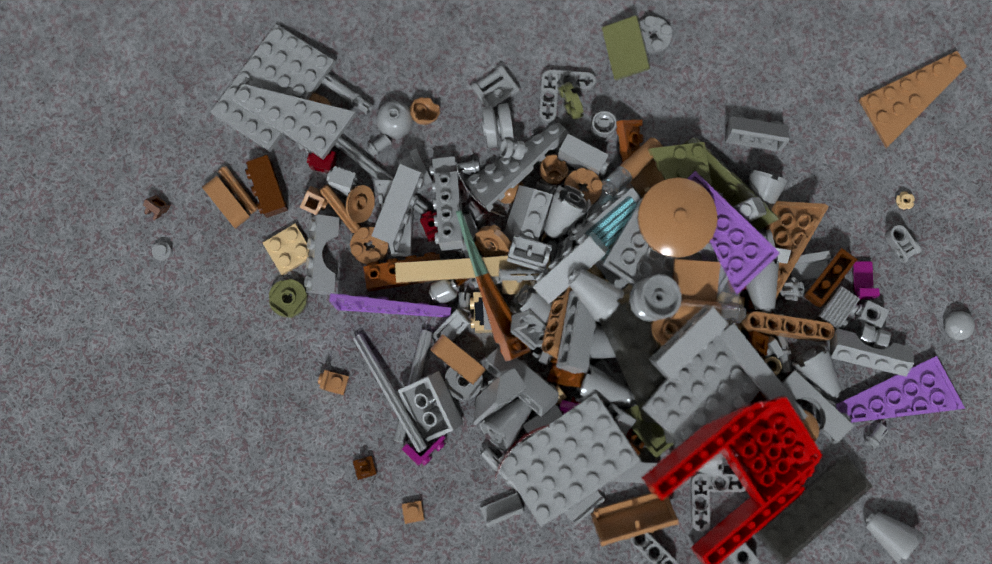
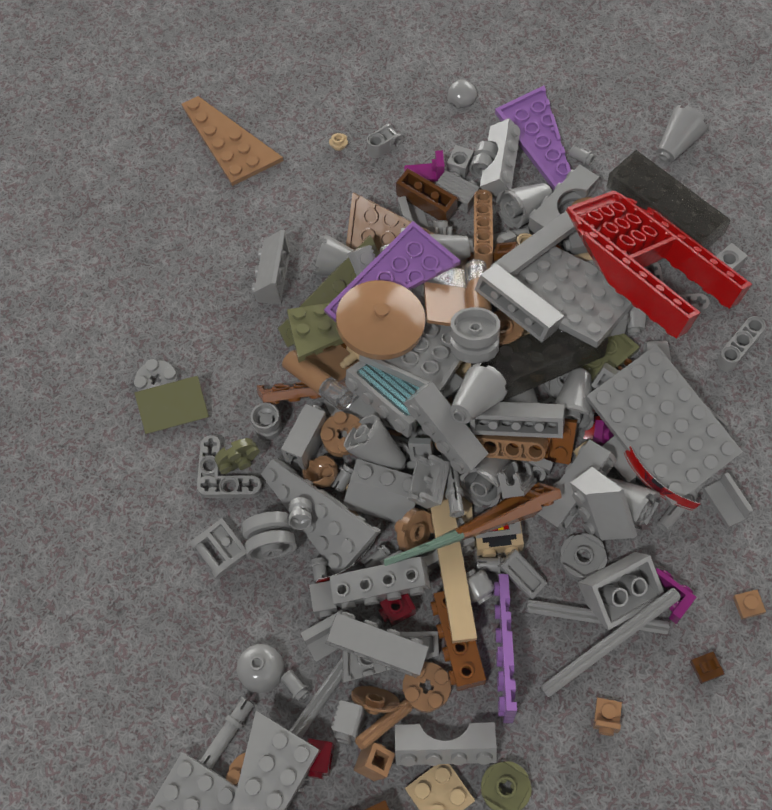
camera: 90 degrees left, 15 degrees down
(424, 111) = (250, 628): medium nougat hair -> none
(457, 359) = (561, 560): medium nougat beam -> none
(632, 518) = (710, 364): medium nougat container -> none

